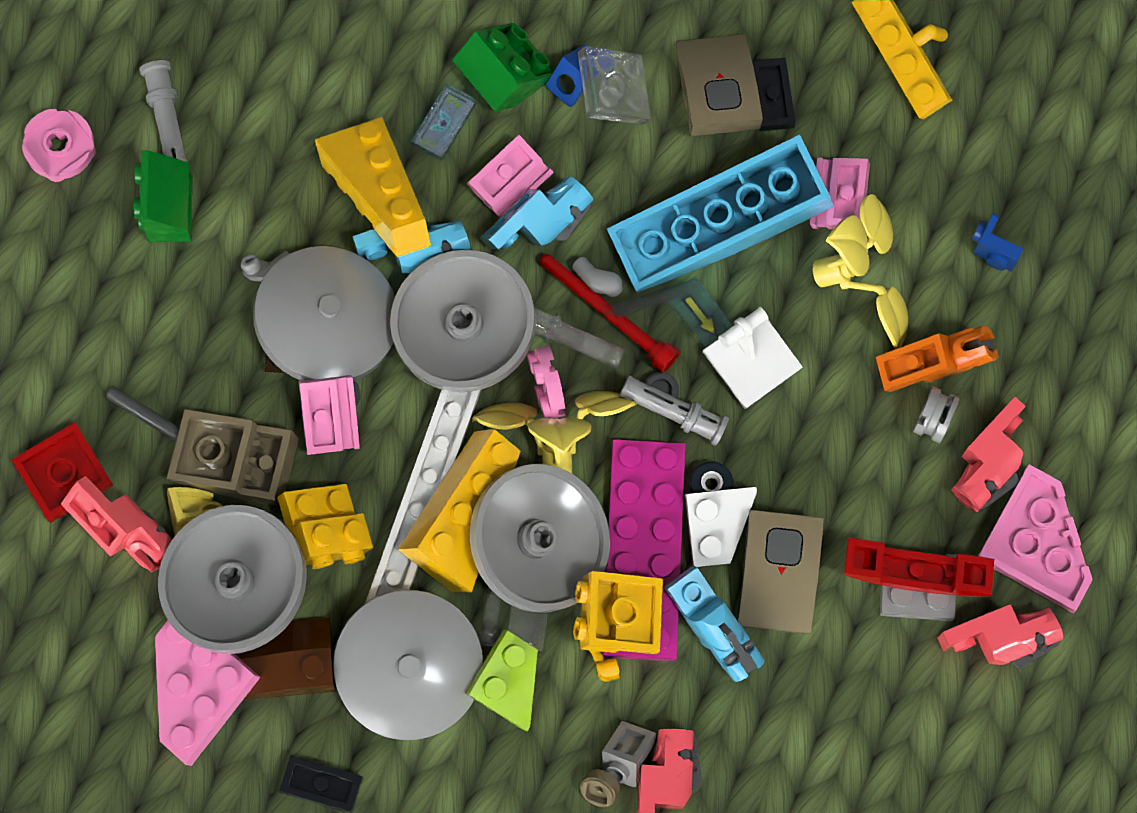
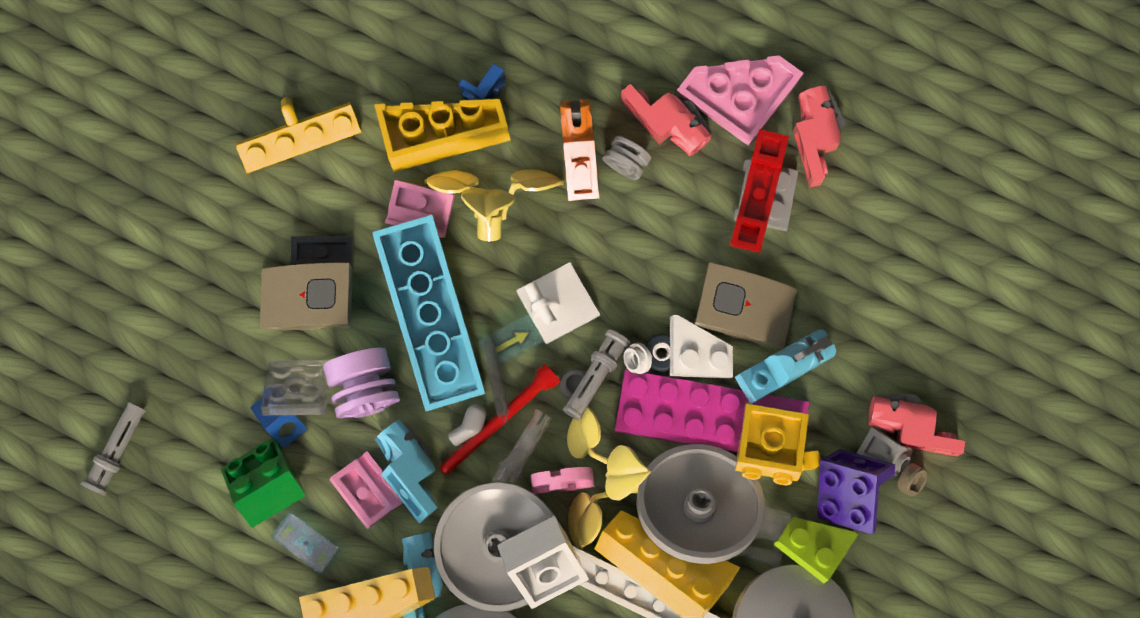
camera: 75 degrees left, 5 degrees up
(449, 364) = (542, 562): none -> white slope
(579, 708) = (851, 489): none -> dark purple bracket
(633, 149) = (362, 388): none -> lavender wheel
(699, 454) = (637, 358): none -> white plate
(933, 199) = (439, 130): none -> yellow wedge

